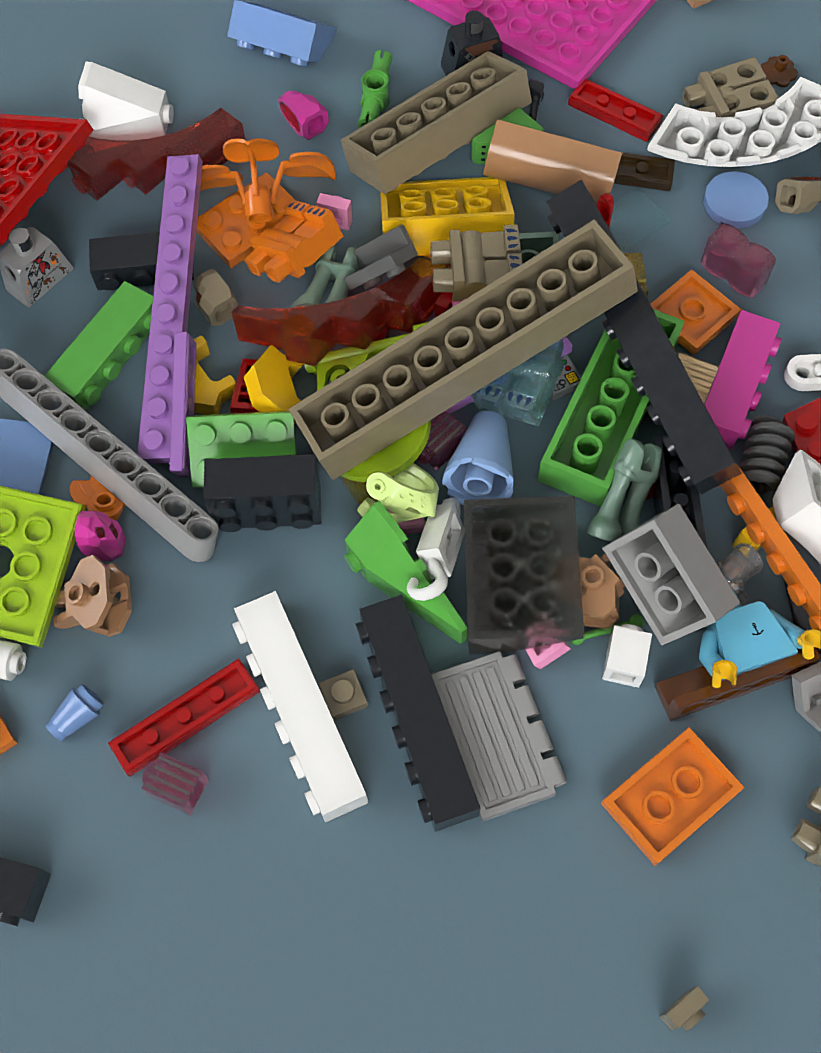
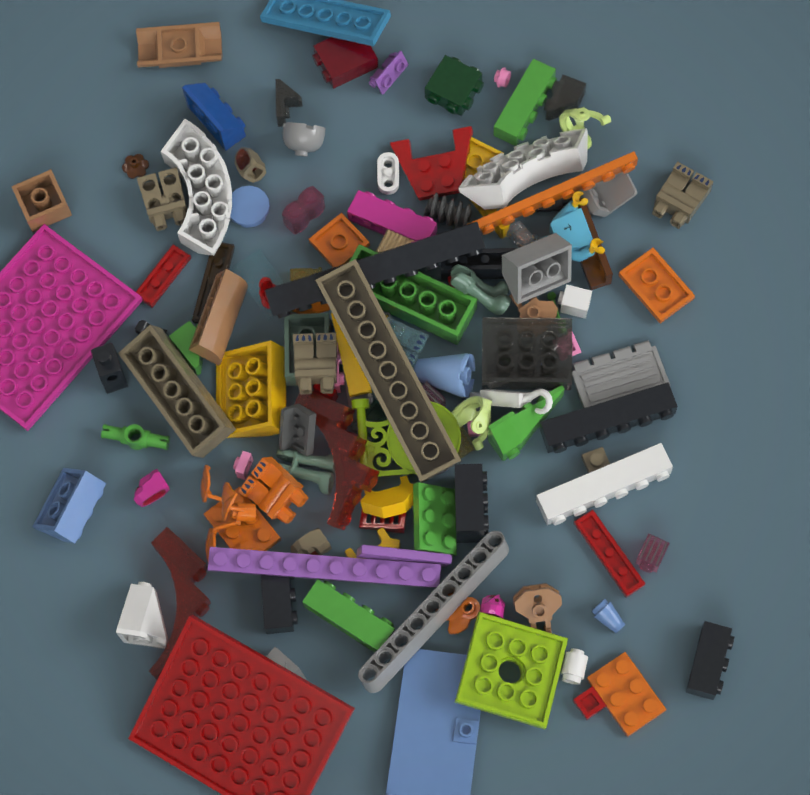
camera: 85 degrees left, 5 degrees up
(686, 1010) = (768, 289): dark tan plate -> none

